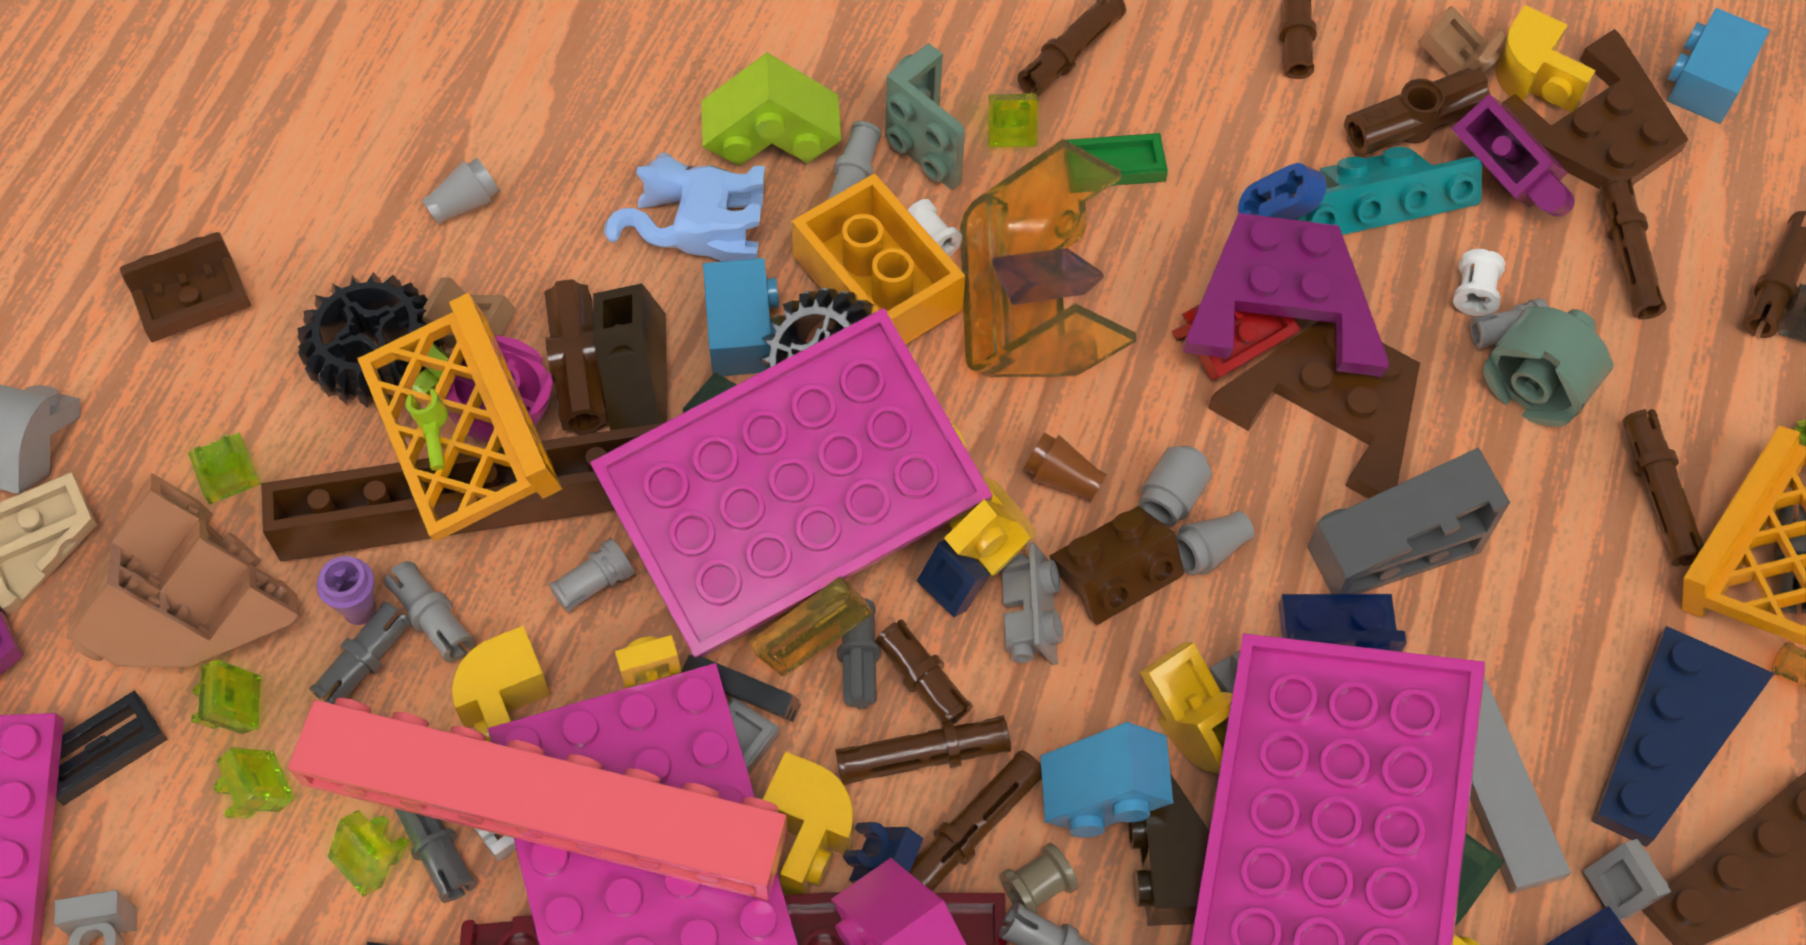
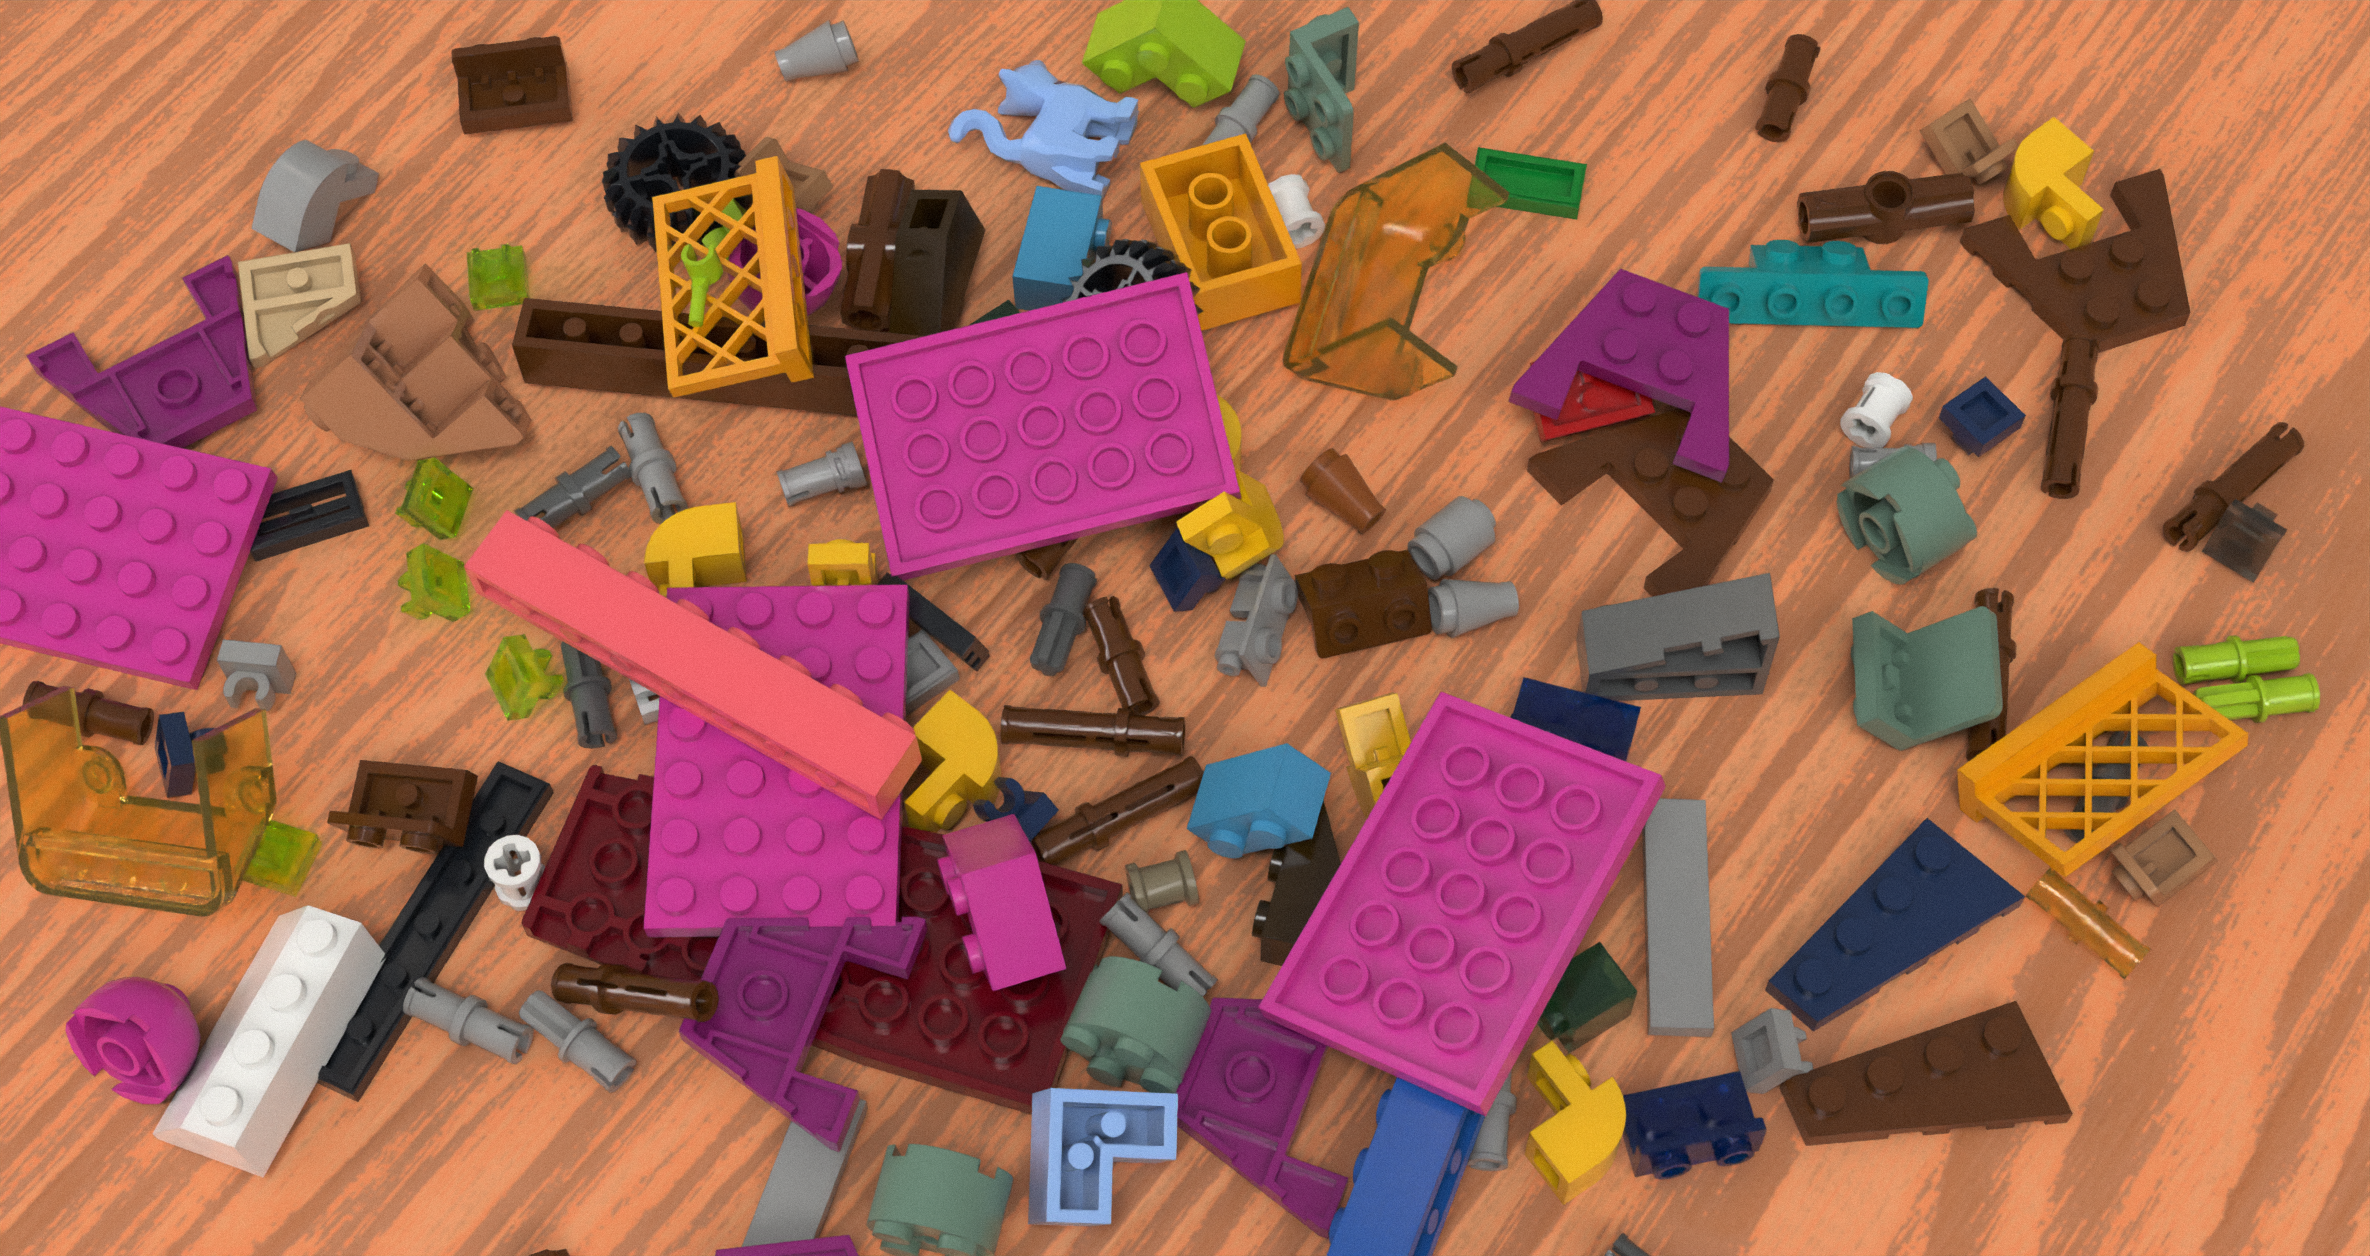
camera: 20 degrees right, 0 degrees up
(348, 588) = (578, 423): medium lavender cone -> none
(811, 627) = (1019, 578): clear yellow tile -> none
(1012, 120) = (1426, 112): clear neon green tile -> none
(1045, 275) = (1396, 286): slope -> none
(1280, 188) = (1688, 261): blue beam -> none
(1515, 157) = (1970, 282): magenta brick -> none
(1568, 267) = (1981, 417): none -> dark blue tile
(1624, 501) = (1926, 679): none -> sand green bracket
(1717, 66) = (2261, 236): dark azure brick -> none

